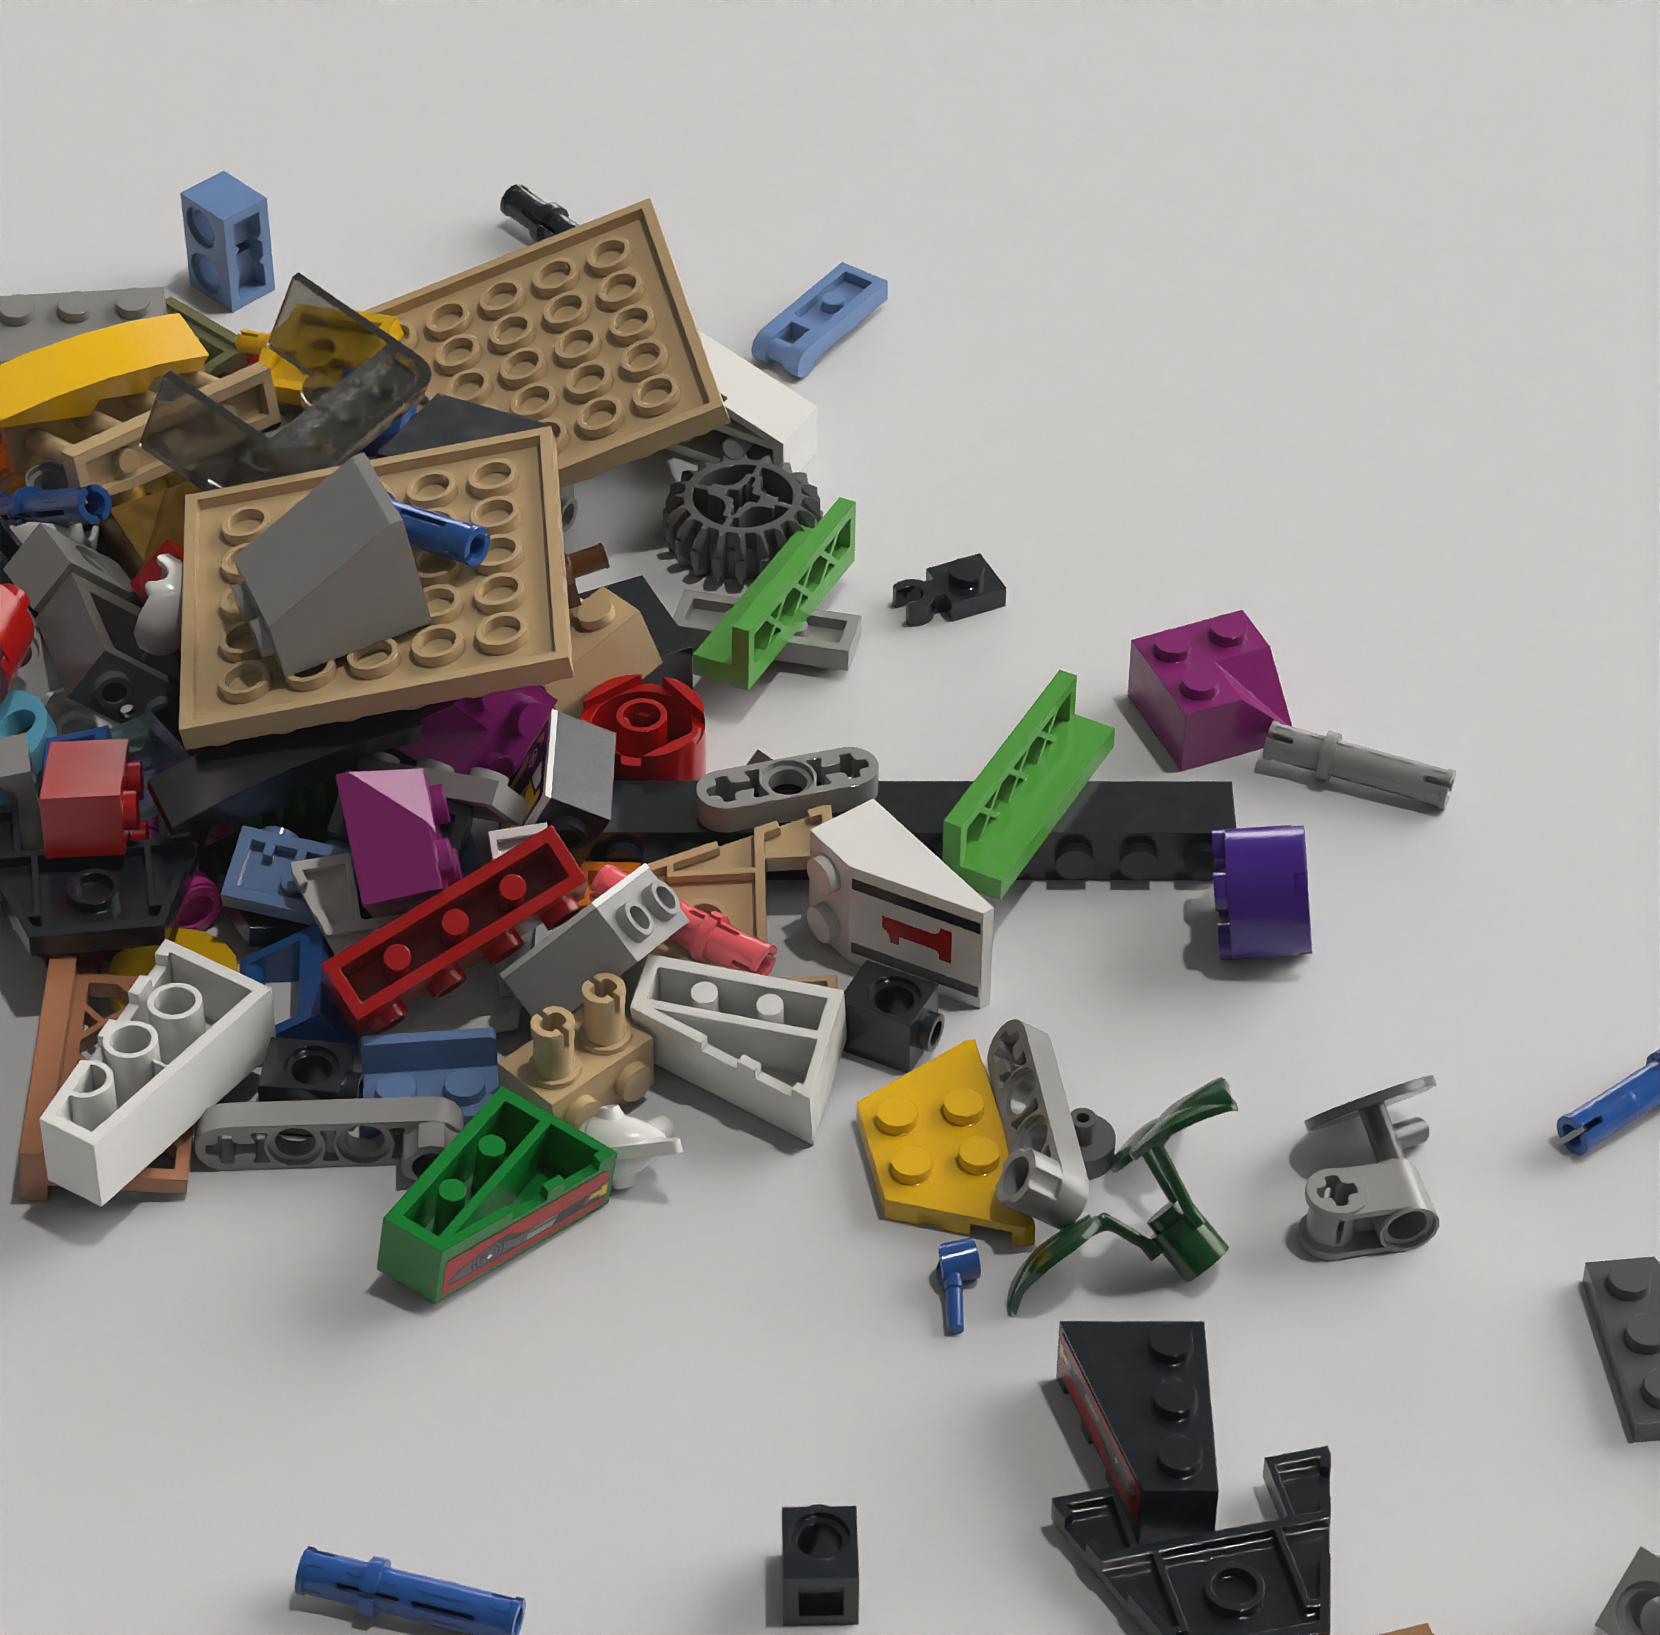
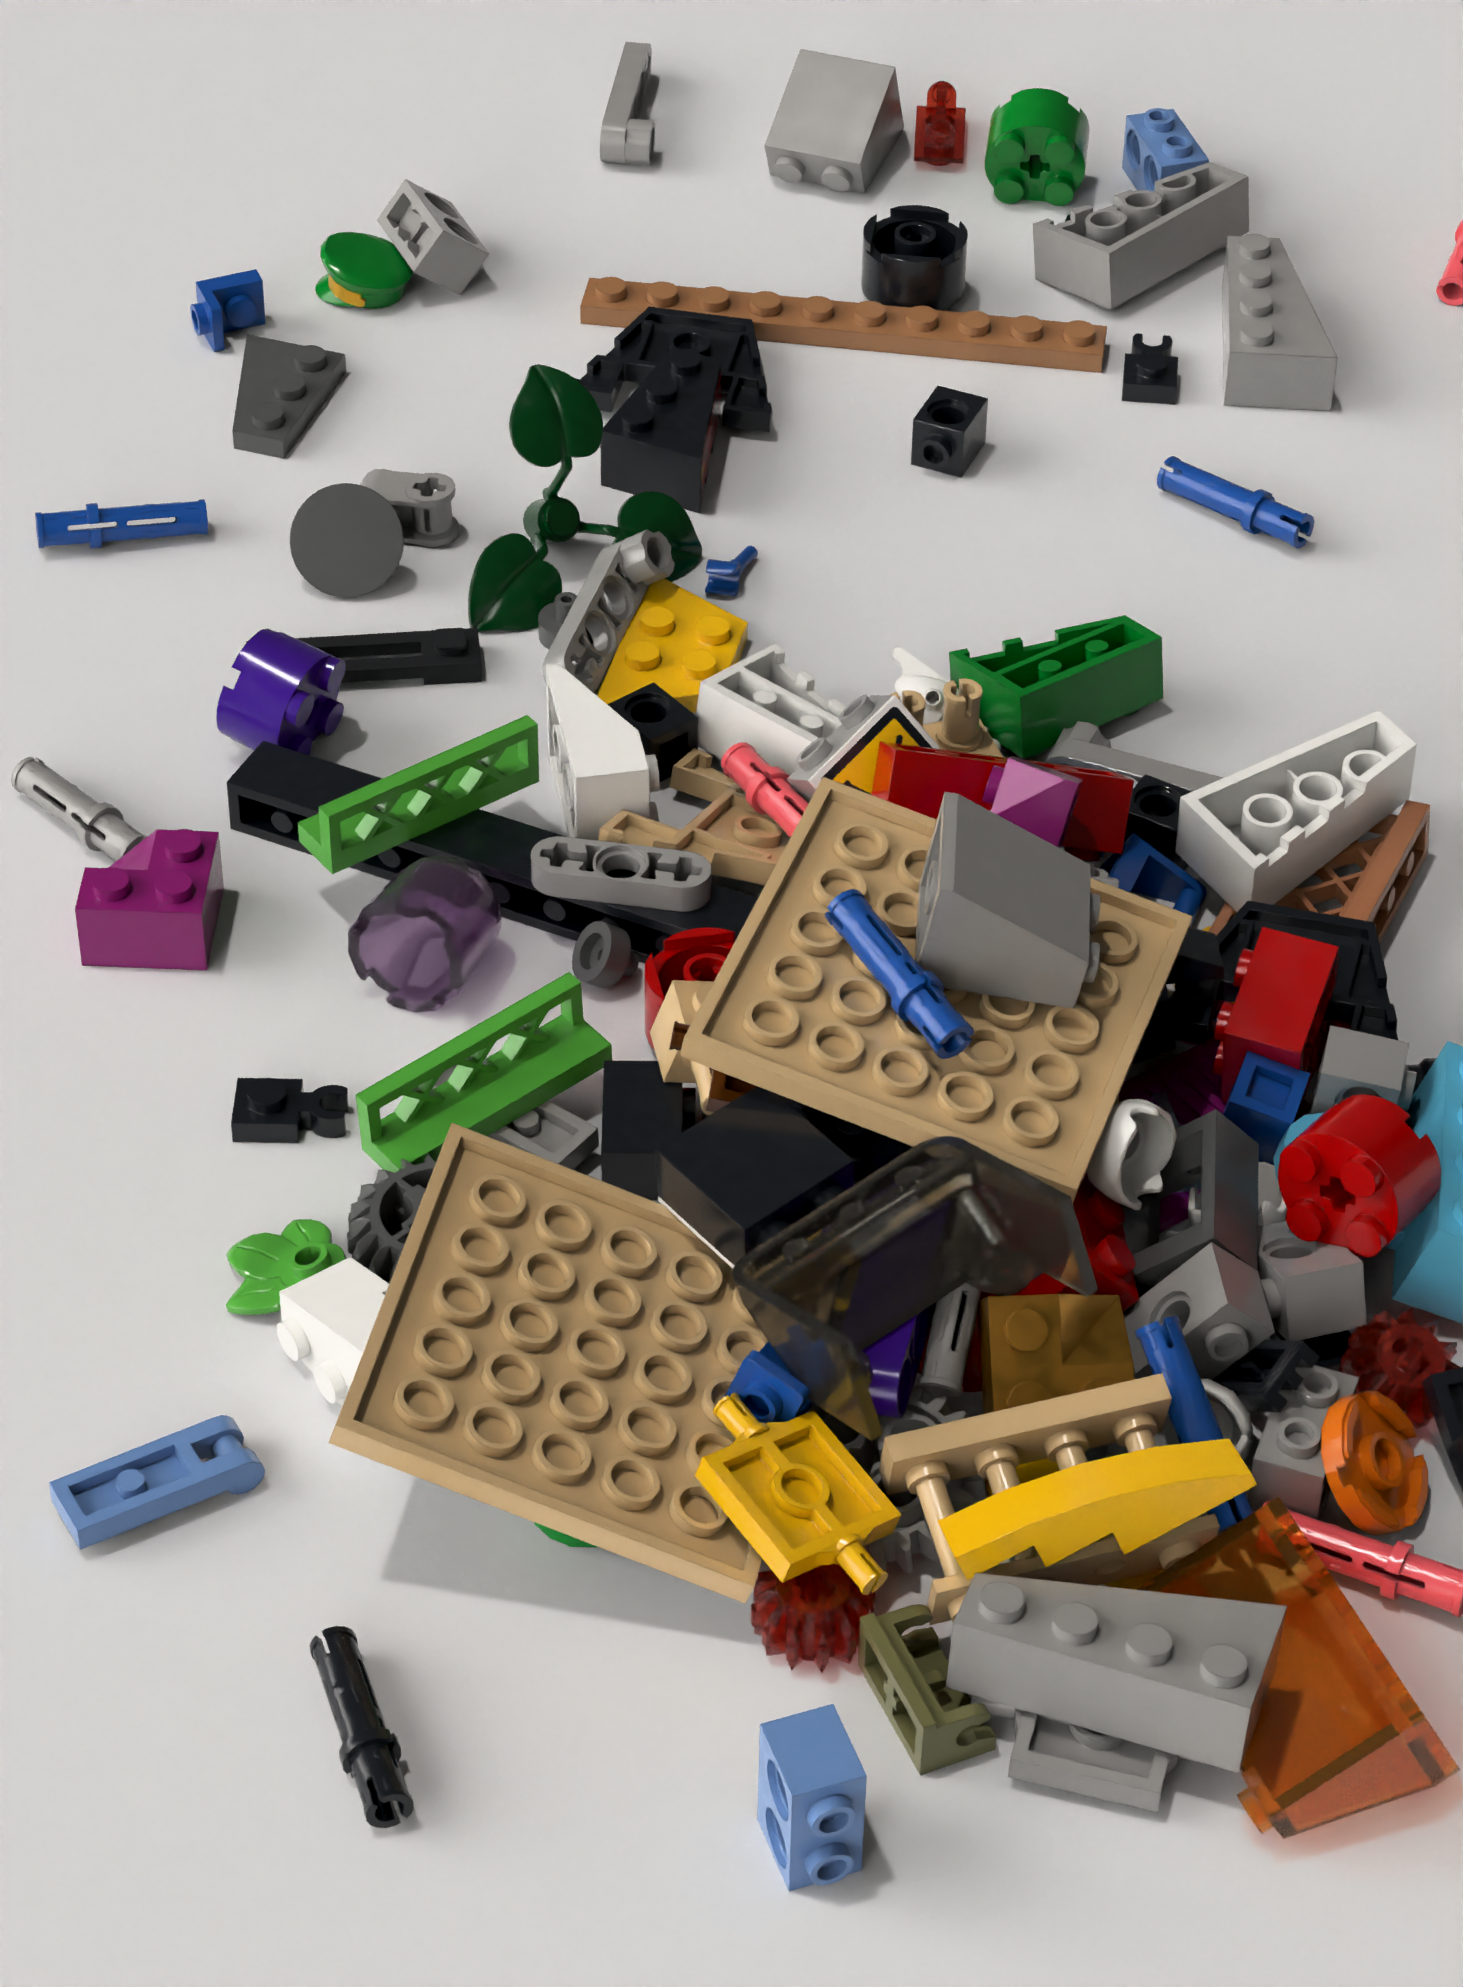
camera: 155 degrees left, 0 degrees up
(850, 473) = (278, 1262): none -> bright green plate
(932, 709) = (426, 932): none -> clear purple cylinder
(1177, 1064) = (445, 657): none -> black container

